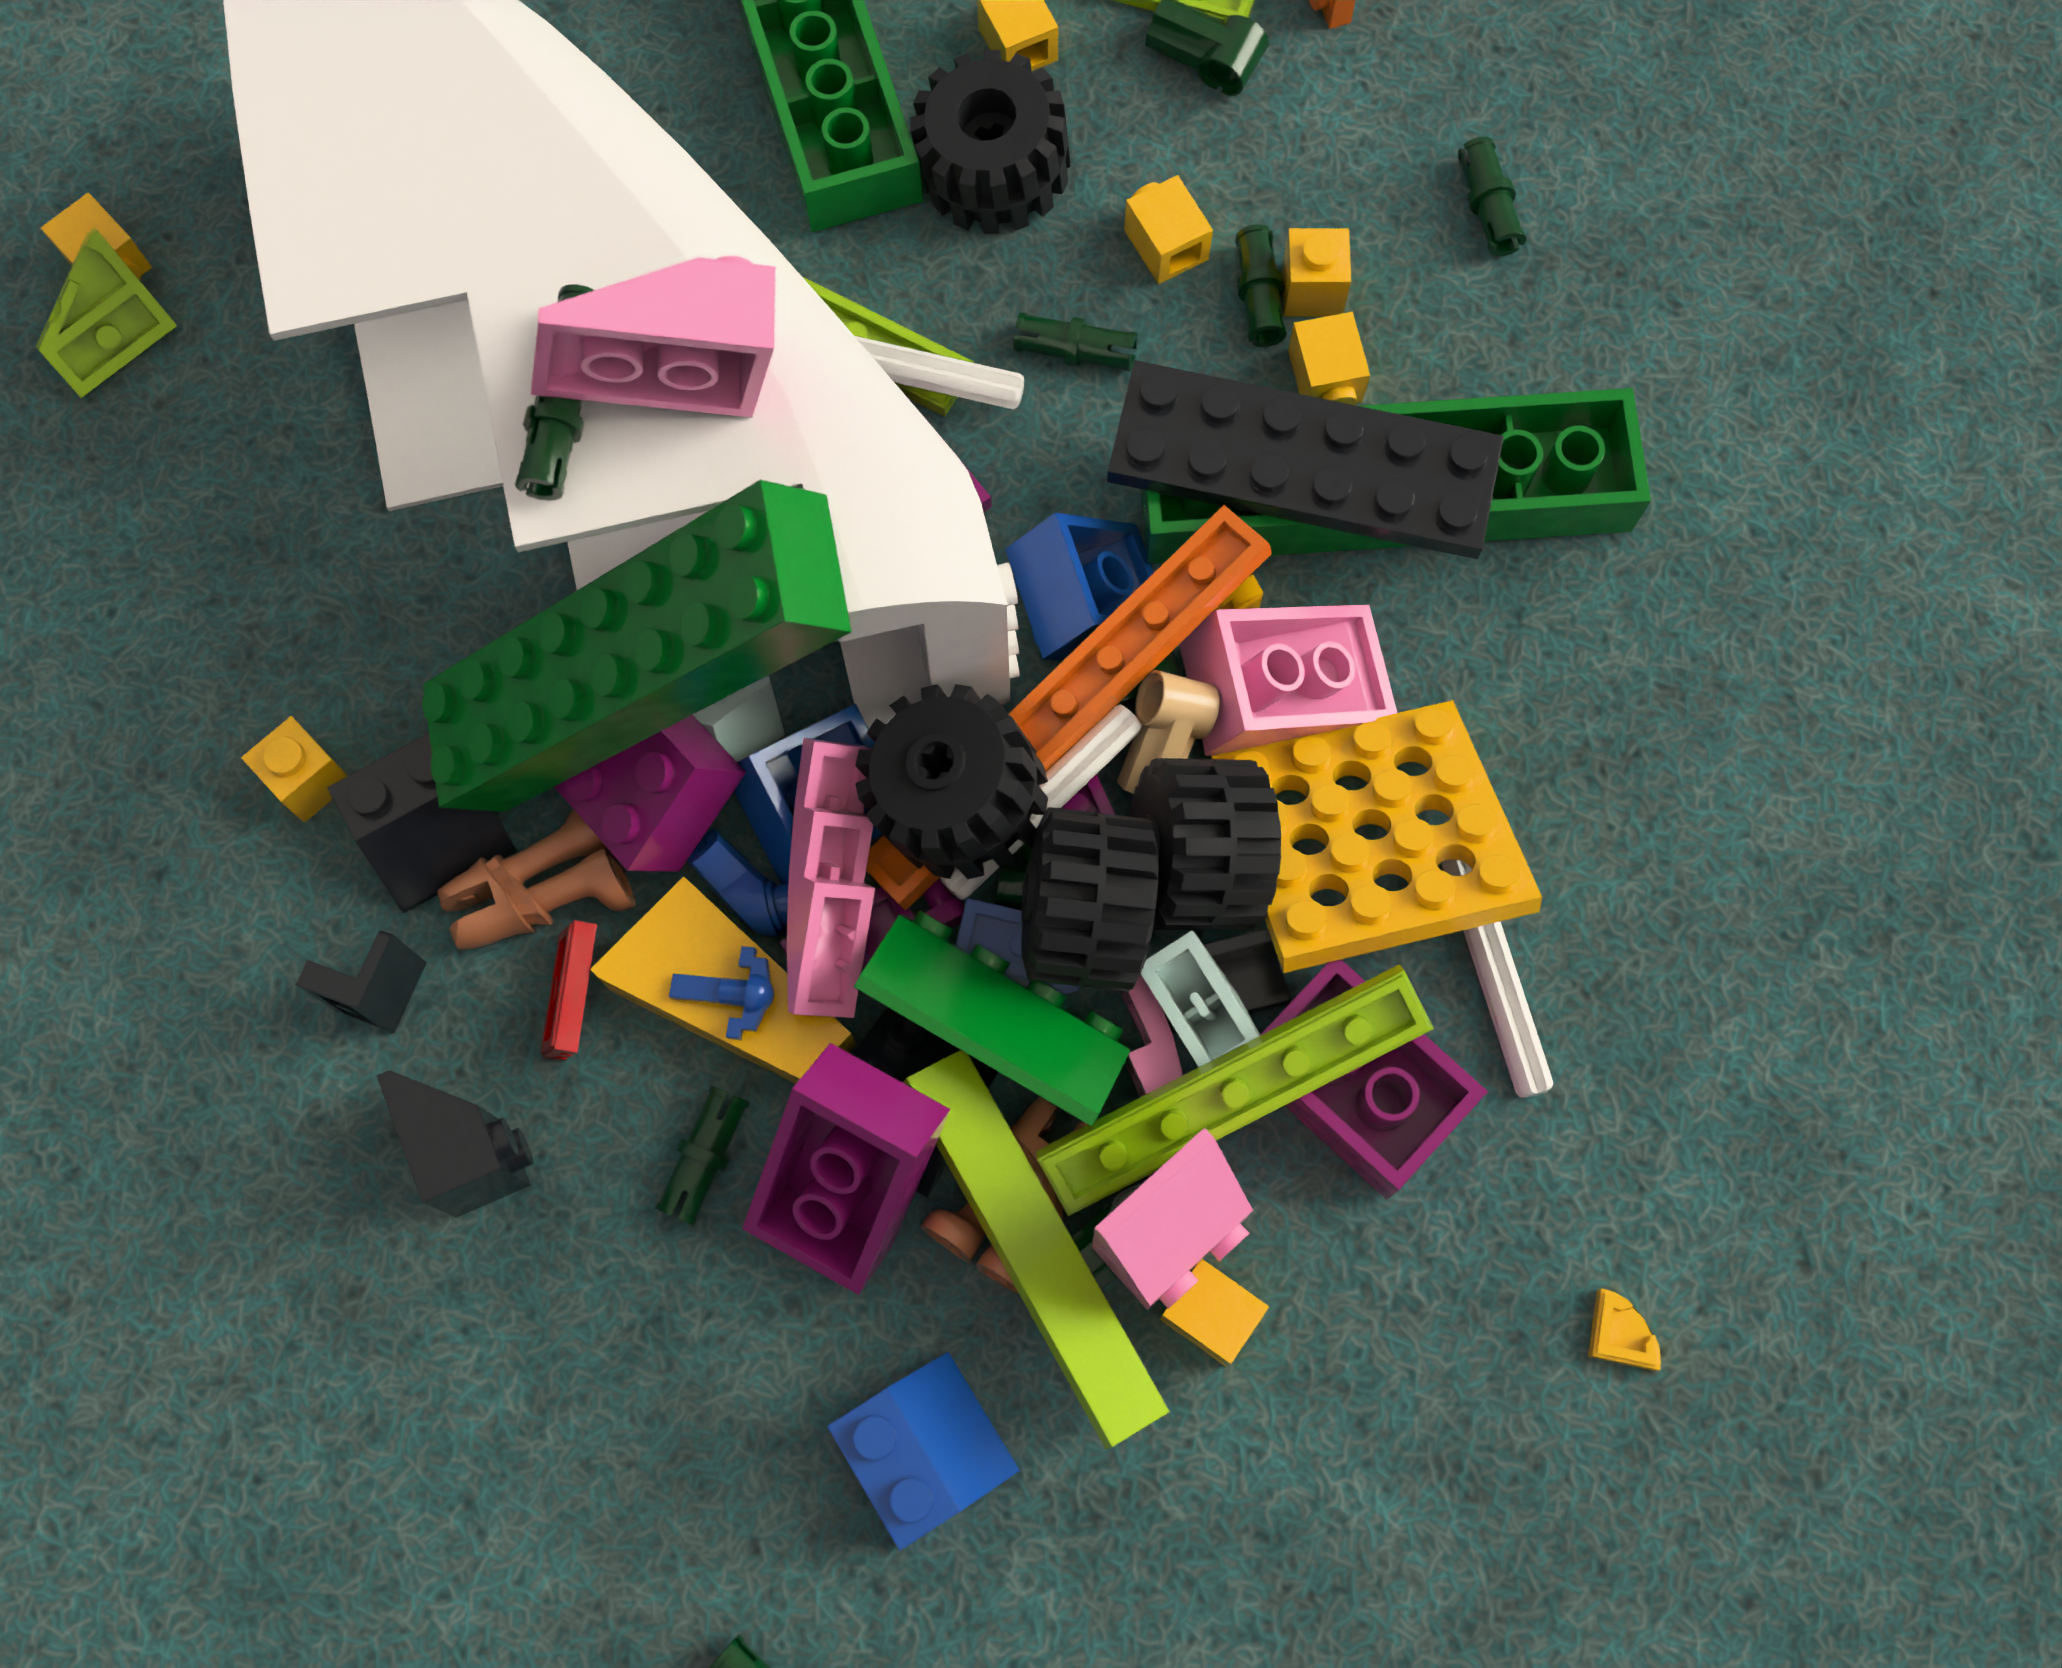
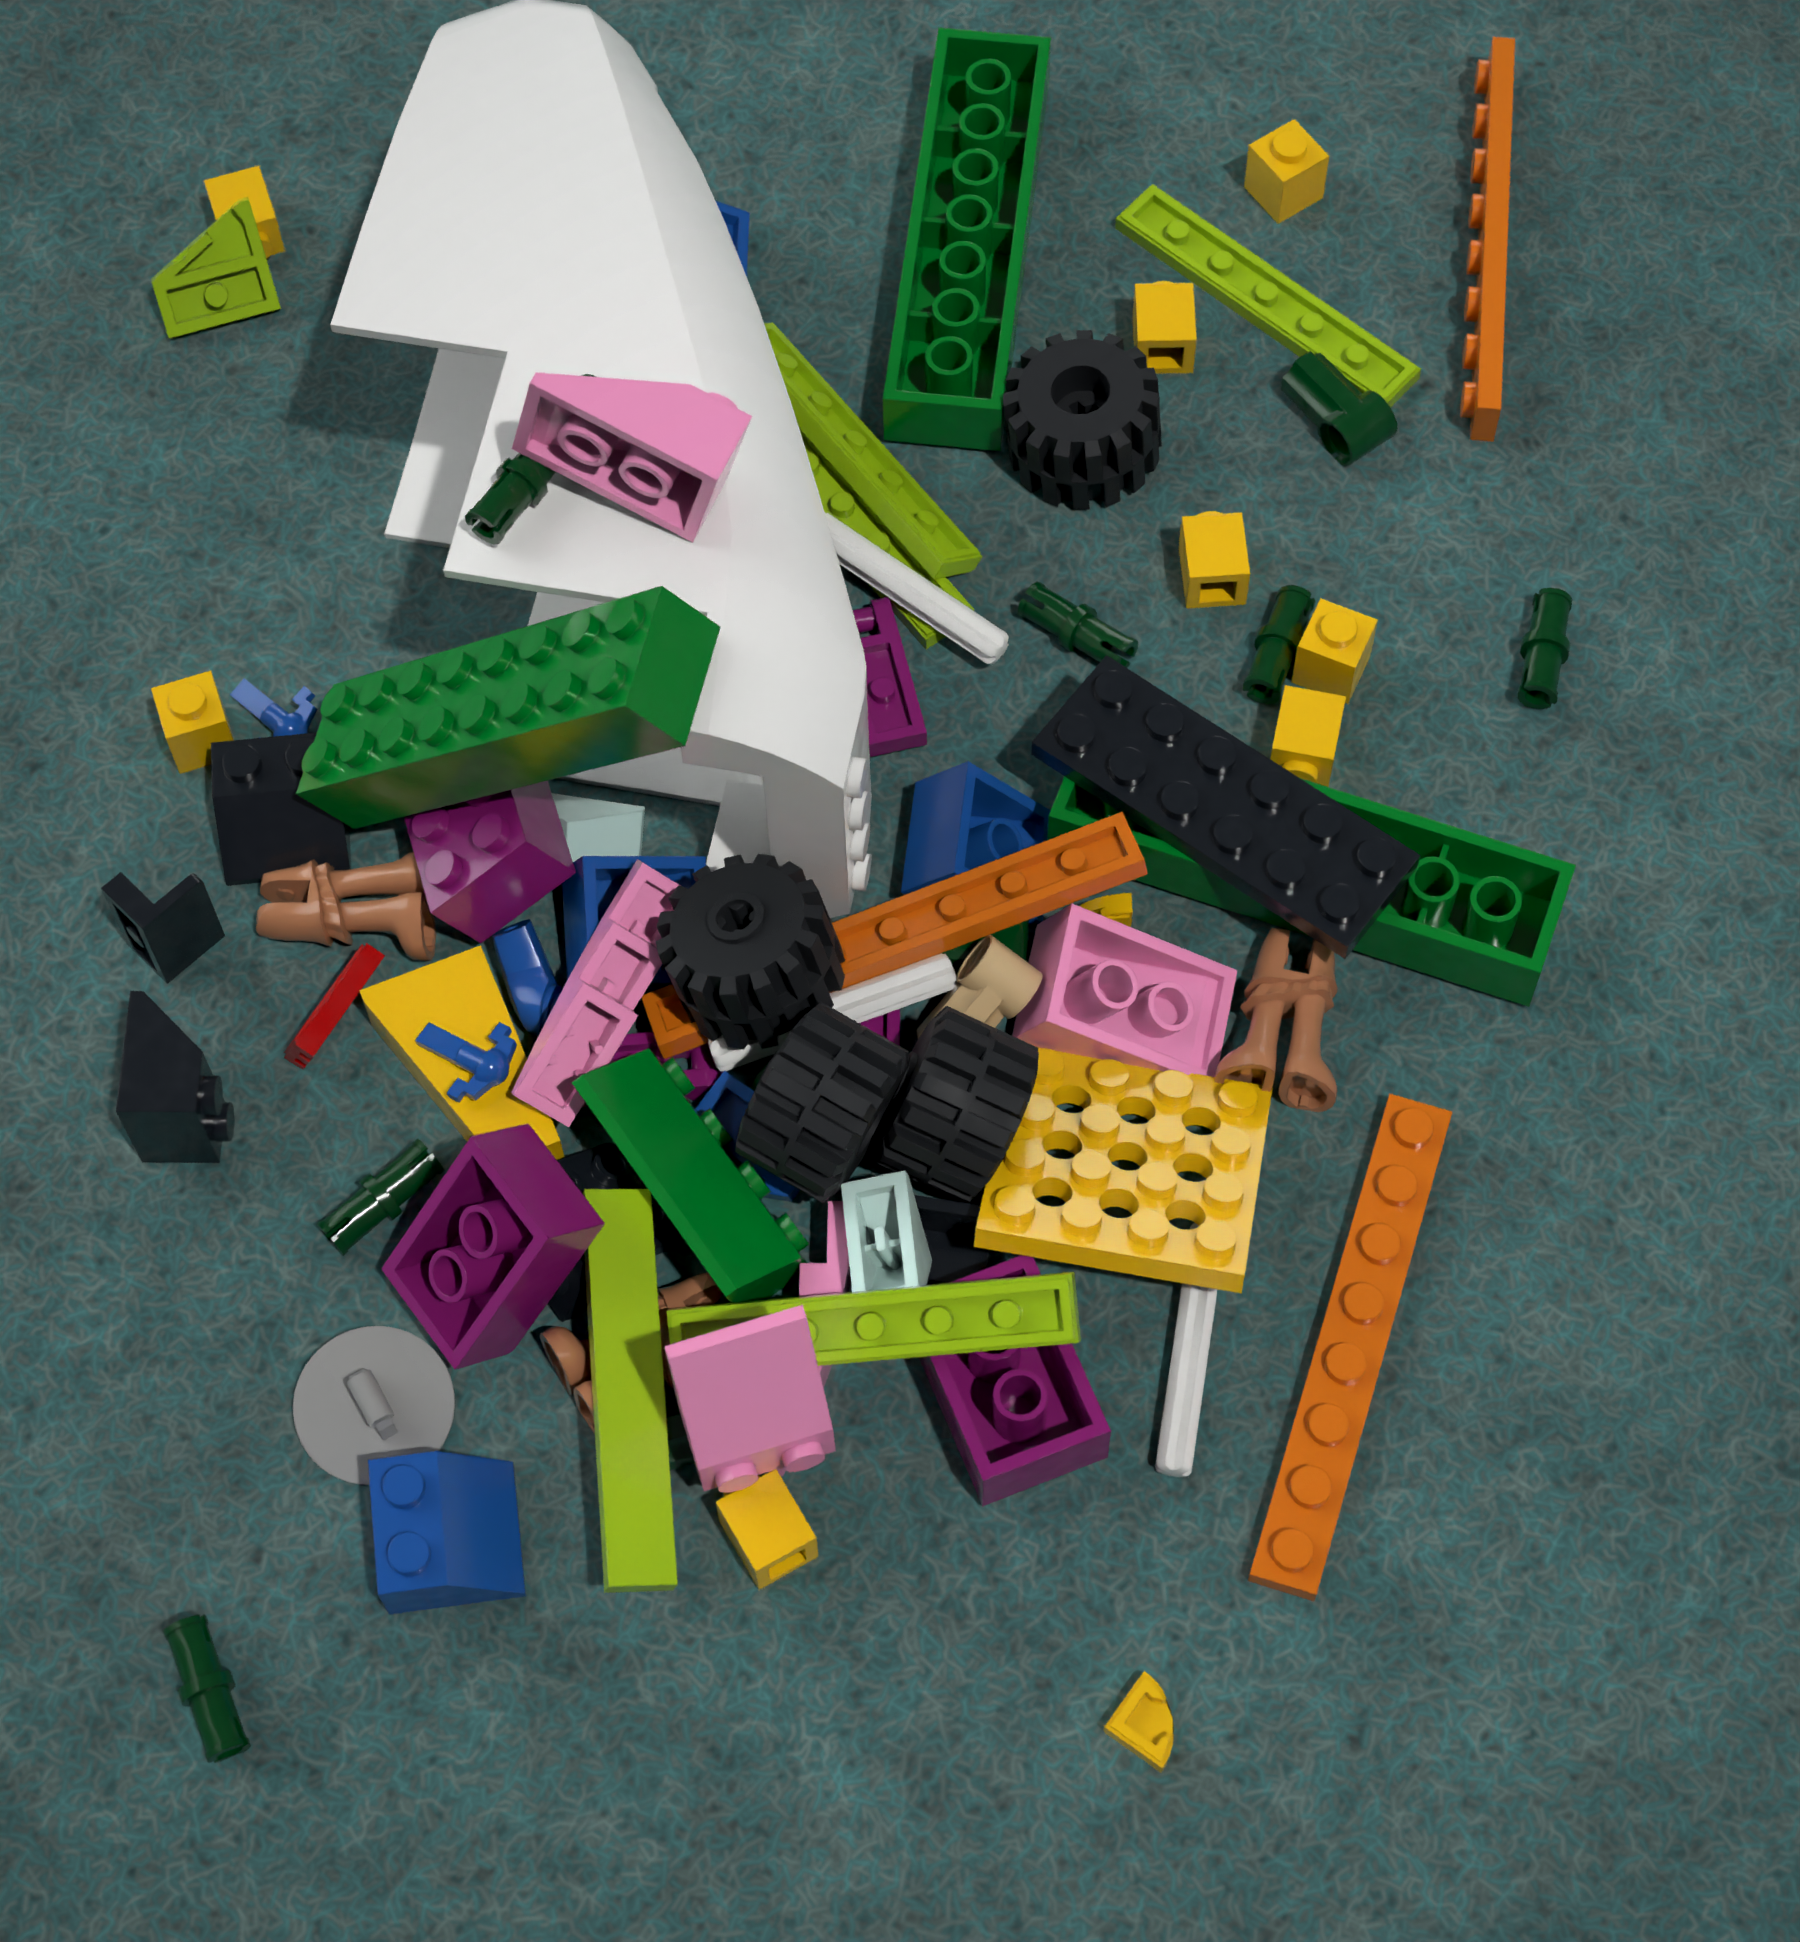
camera: 25 degrees right, 10 degrees down
(386, 735) = (272, 714): none -> blue piece
(792, 1355) = (372, 1399): none -> light grey shield
(856, 283) = (871, 467): none -> lime tile
(1414, 614) = (1281, 995): none -> nougat piece
(1632, 911) = (1350, 1349): none -> orange plate

